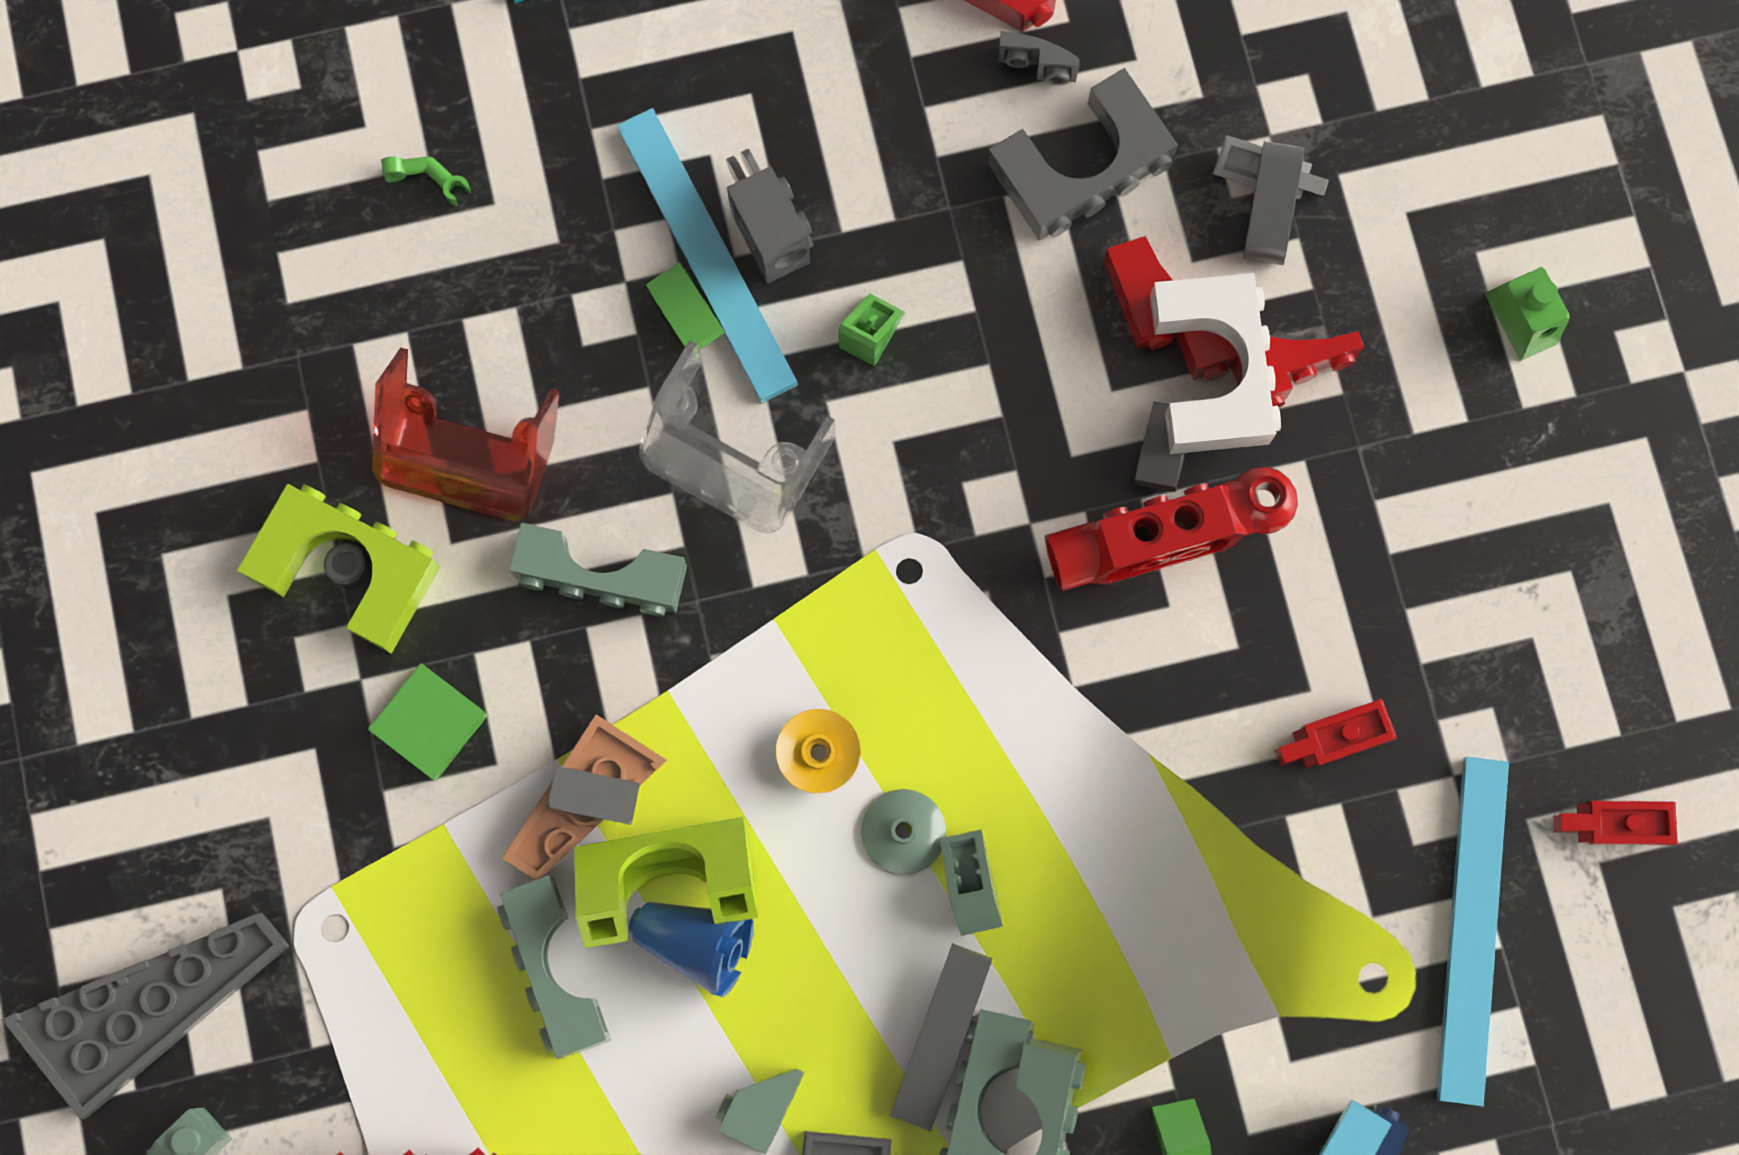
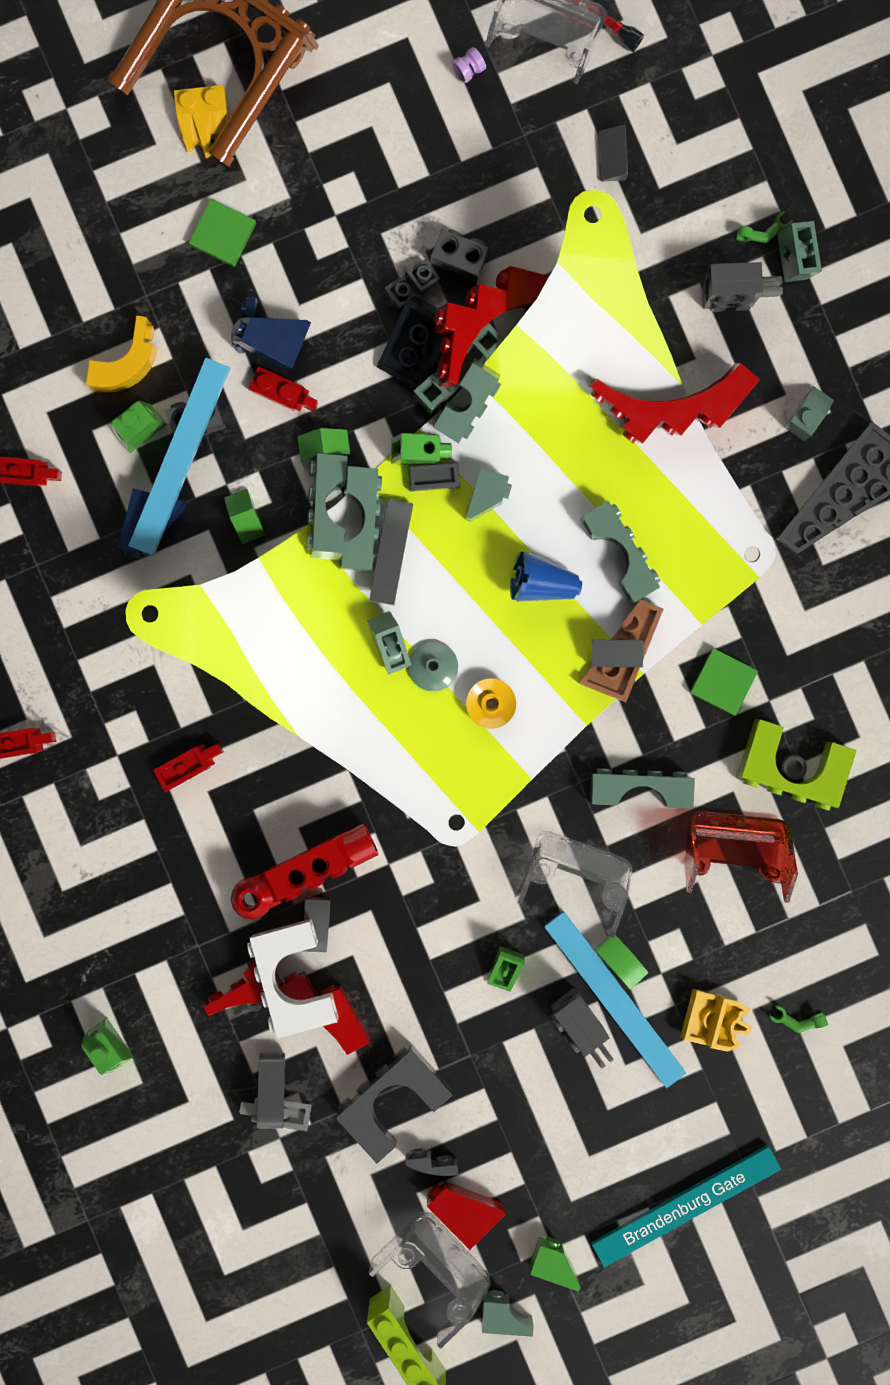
camera: 165 degrees right, 10 degrees up
(557, 194) = (714, 1021): none -> yellow plate
(616, 868) = (597, 613): lime arch -> none
(1473, 931) = (95, 667): medium azure tile -> none

